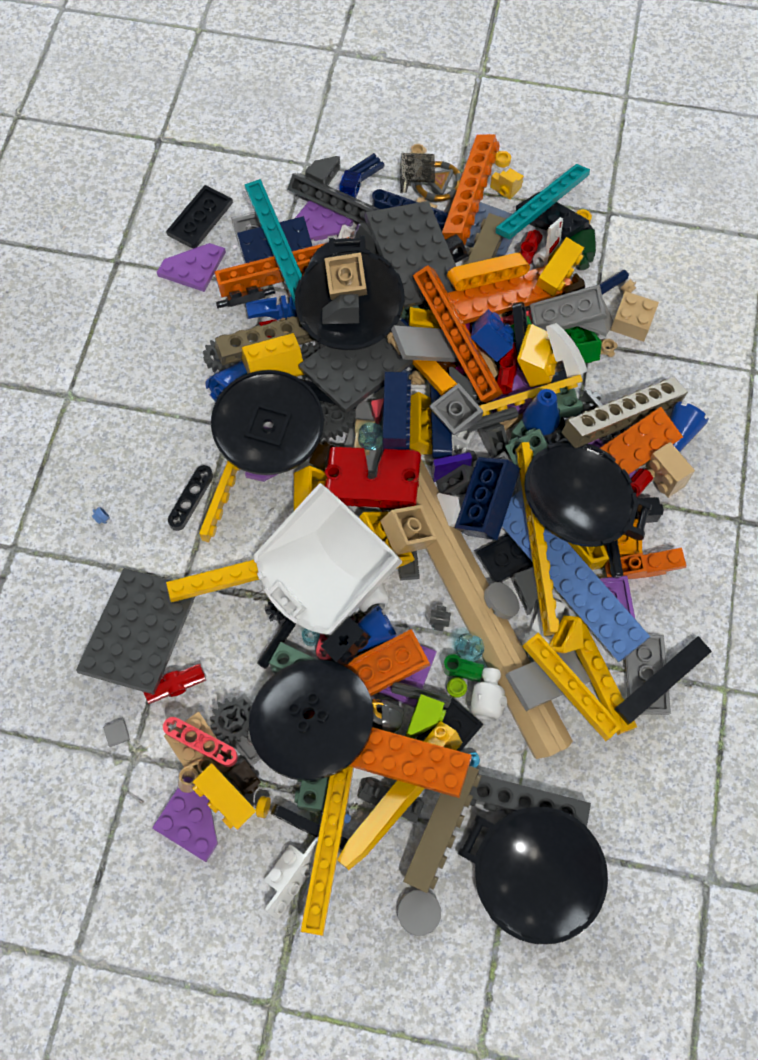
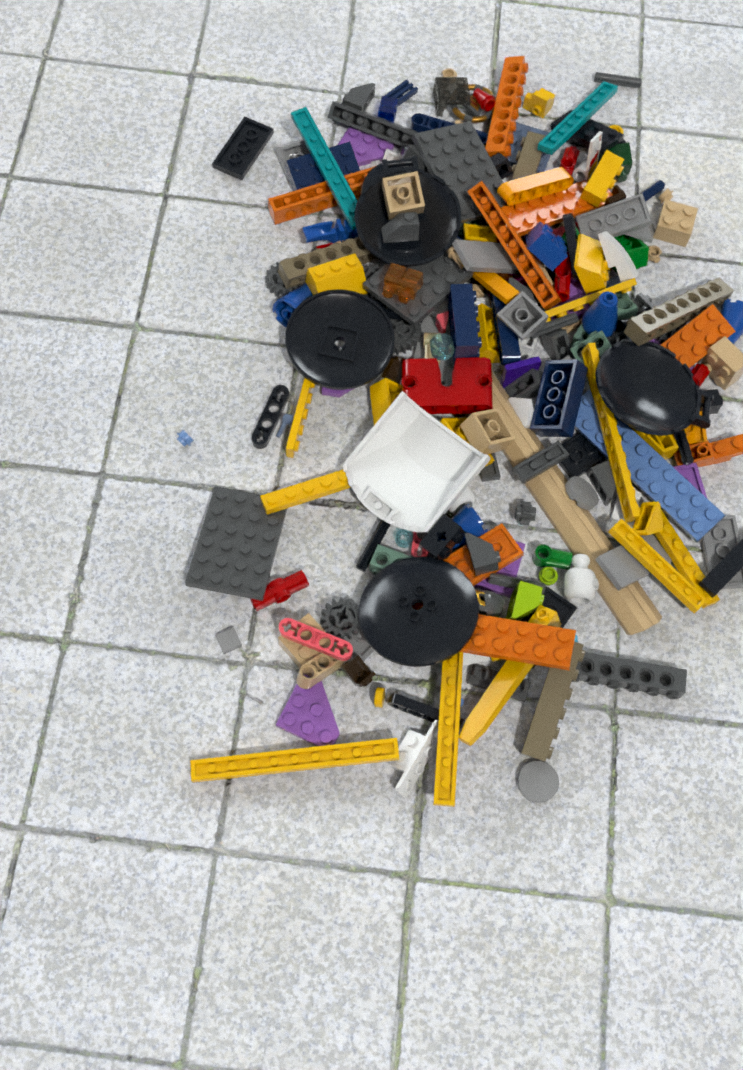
camera: 10 degrees left, 0 degrees up
(165, 869) = (294, 760): none -> yellow plate
(193, 267) = (243, 196): medium lavender plate -> none
(206, 501) = (287, 420): none -> sand blue hand
(223, 797) = (345, 688): yellow wedge -> none
(236, 297) = (306, 218): black plate -> none
(274, 616) = (370, 522): black gear -> none
(317, 788) = (429, 677): sand green brick -> none
(336, 366) = (402, 282): none -> clear orange hips
(384, 663) = (481, 554): none -> dark grey slope
(448, 178) = (484, 99): none -> red cone
(461, 565) = (540, 462): none -> dark grey tile
(469, 647) = (557, 537): clear light blue head -> none
(503, 159) = (532, 80): yellow tile -> none
(539, 874) = (646, 736): black dish -> none
(592, 162) = (618, 79): none -> dark grey axle

